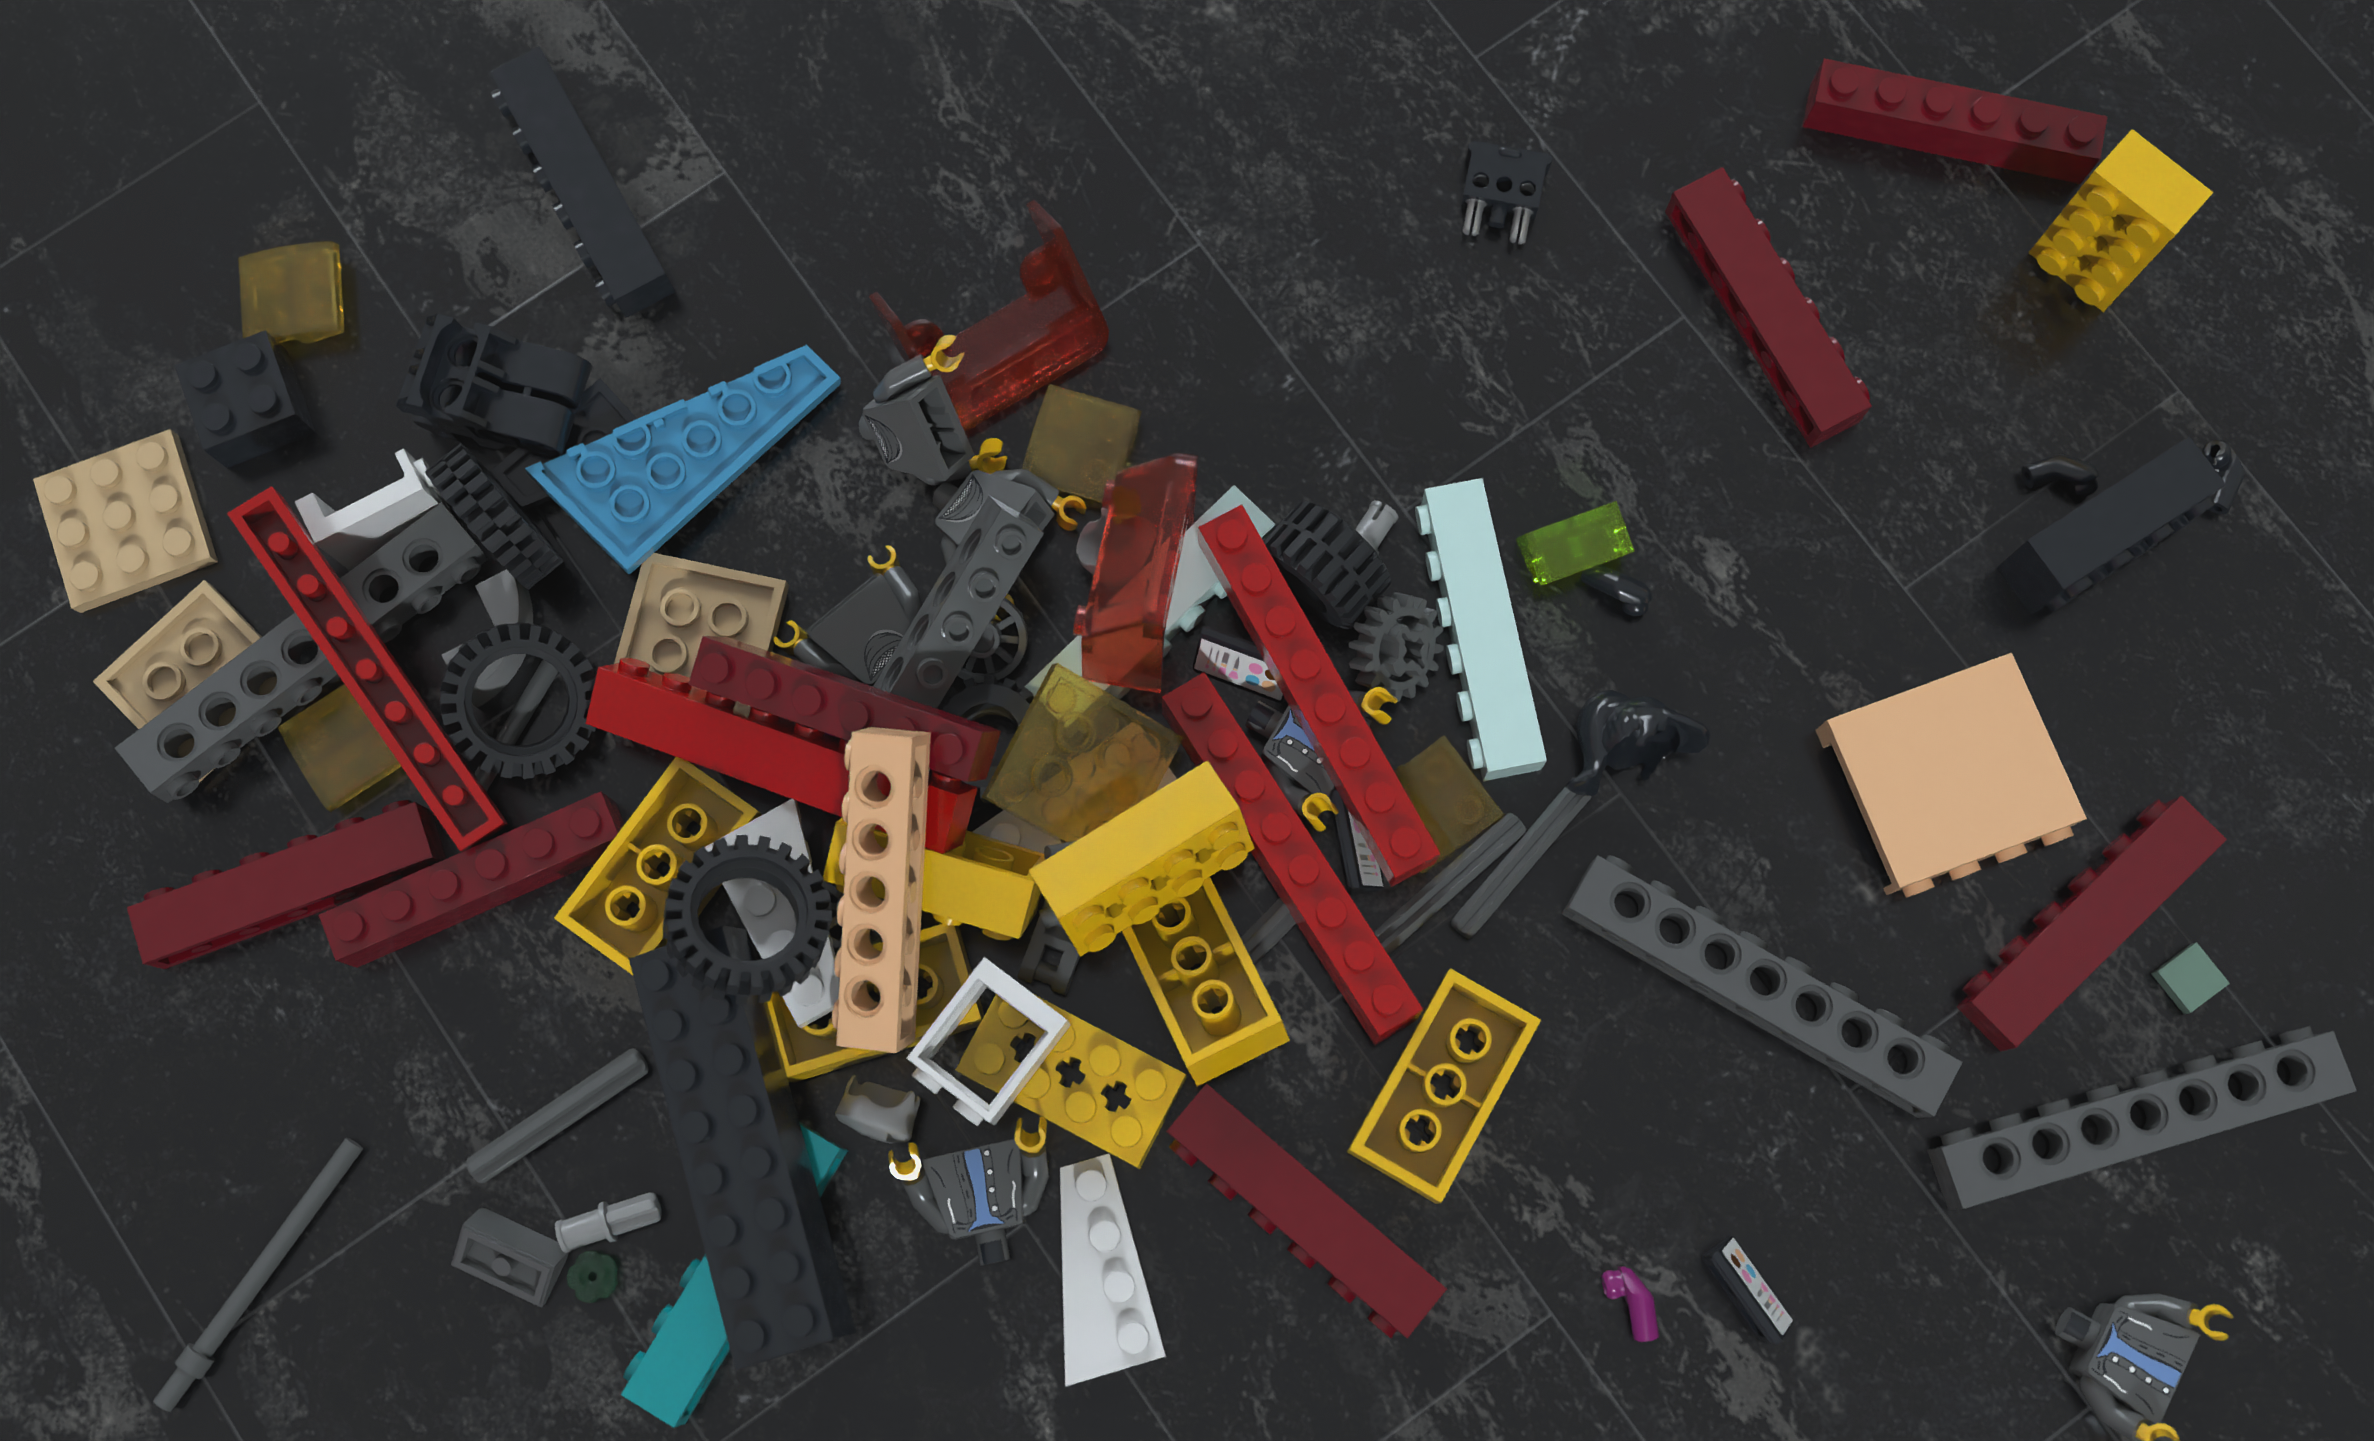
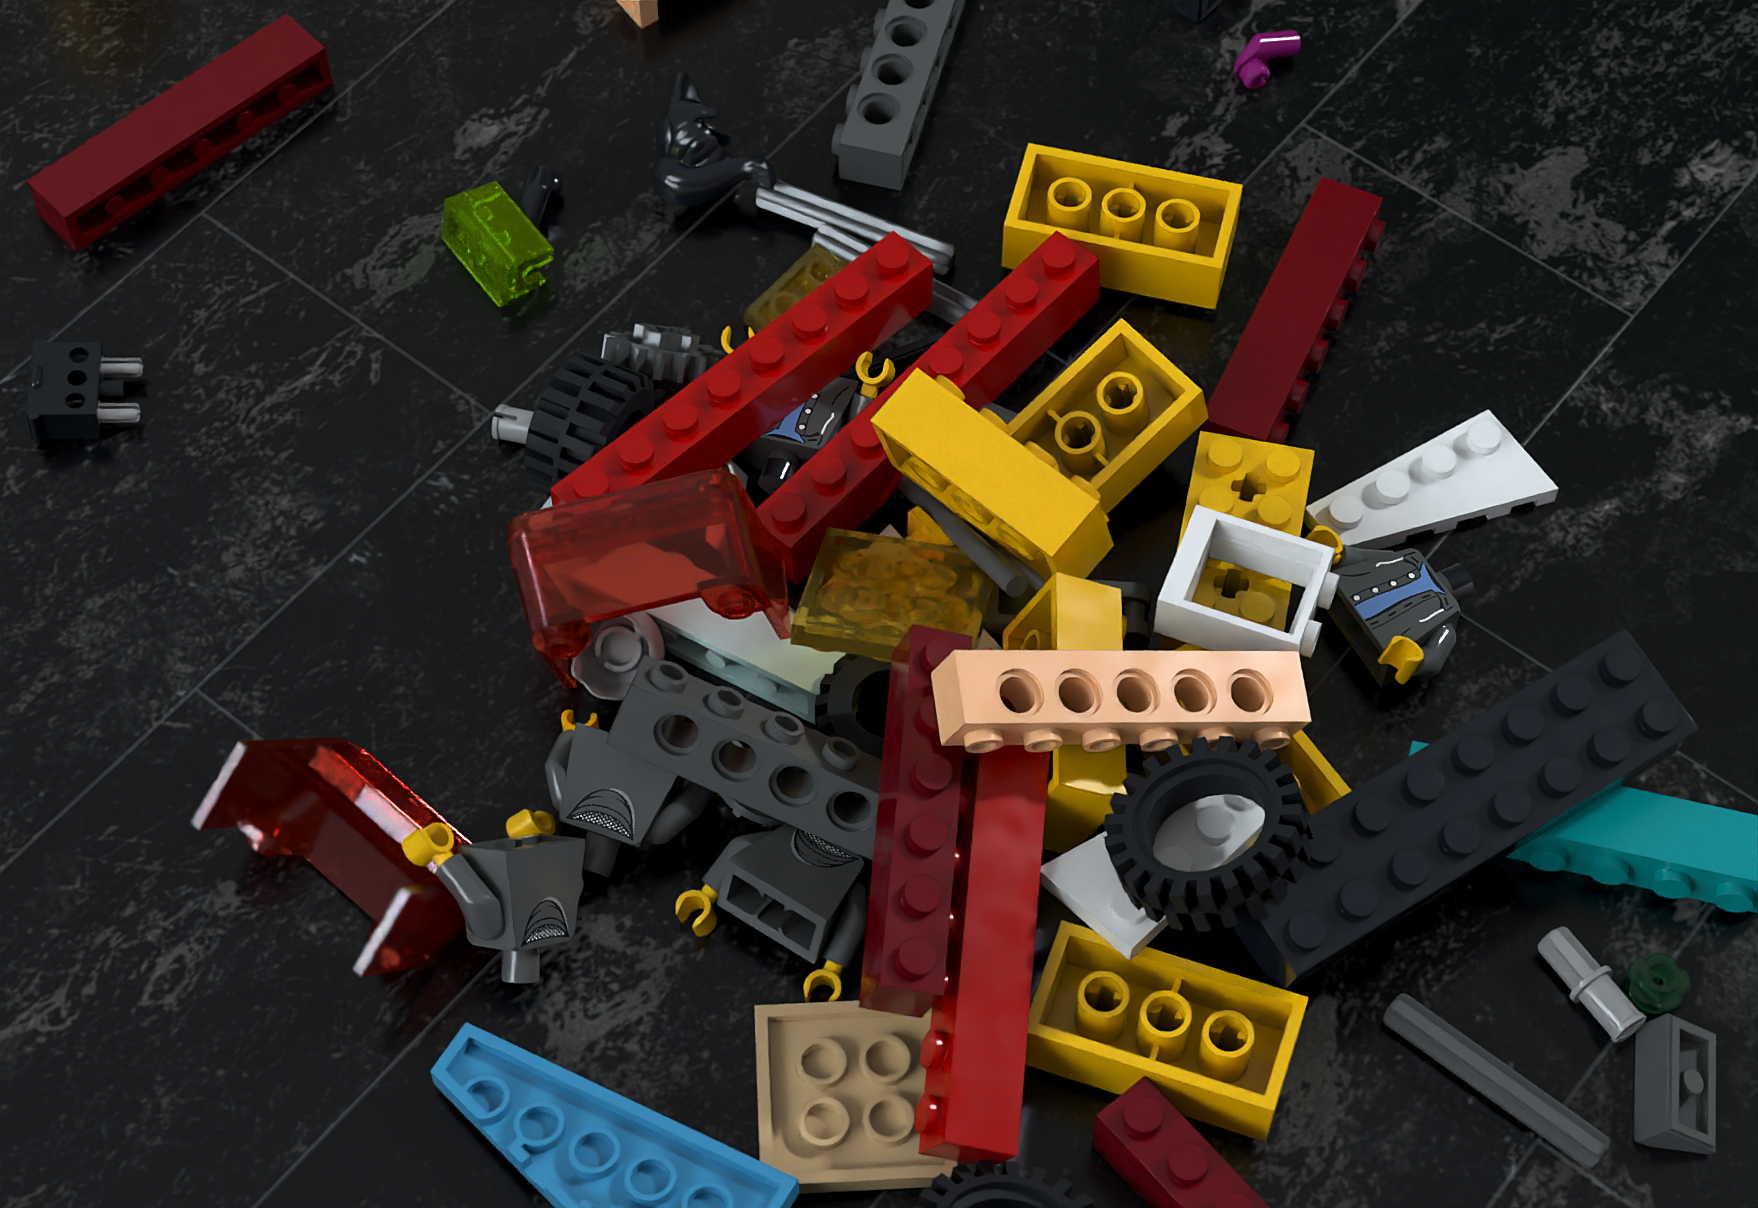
camera: 110 degrees left, 20 degrees down
(878, 1111) = (1352, 722): light grey hair -> none
(1080, 441) = (491, 732): clear yellow slope -> none
(1481, 630) = (649, 284): light aqua brick -> none

